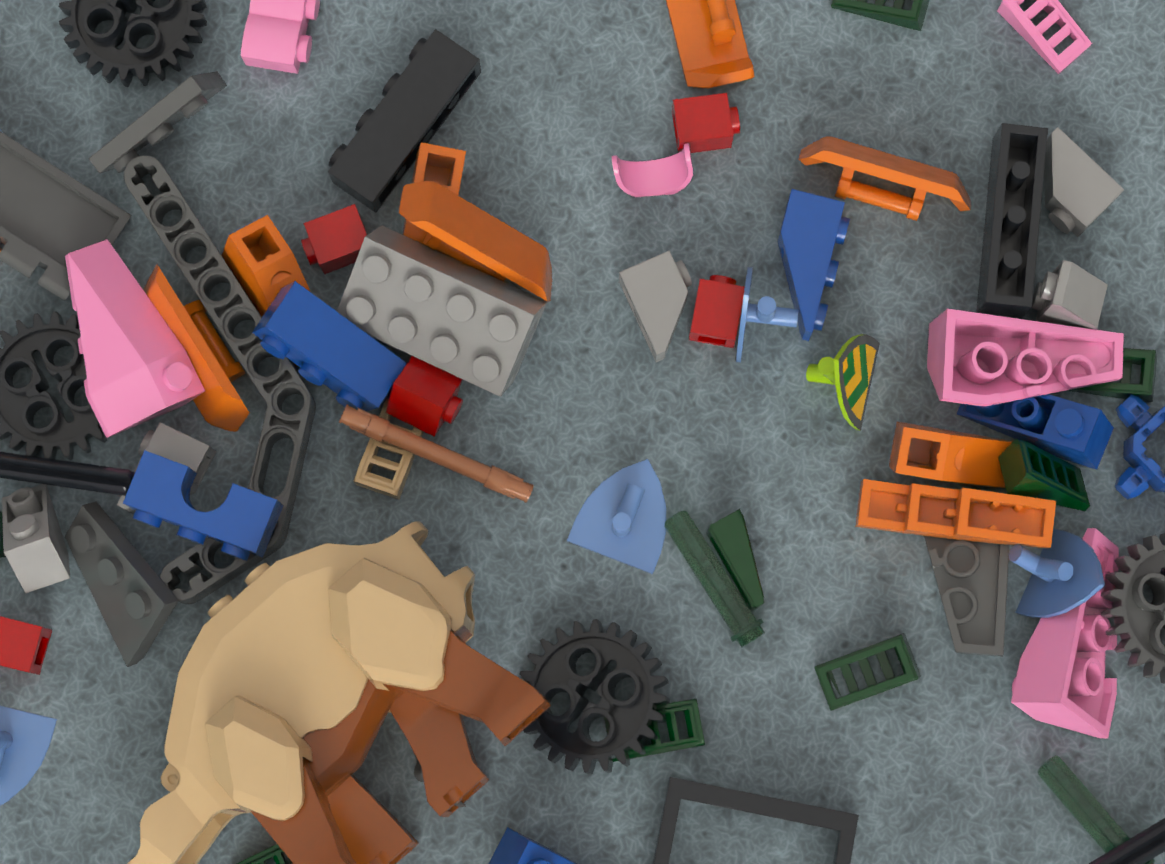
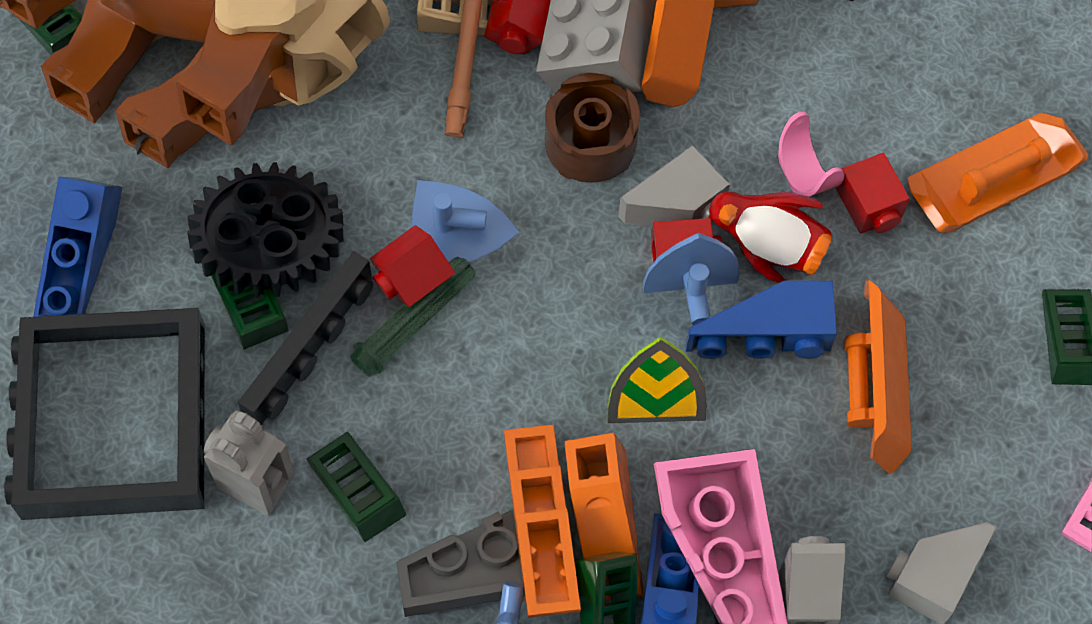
camera: 70 degrees right, 15 degrees down
(552, 341) = (591, 128): none -> reddish brown brick
(673, 569) = (410, 266): none -> red brick
(724, 223) = (773, 230): none -> animal
(734, 548) = (447, 323): dark green slope -> none
(734, 696) = (296, 355): none -> black plate
(841, 763) = (248, 462): none -> light grey hinge
(1012, 221) = (879, 505): black brick -> none

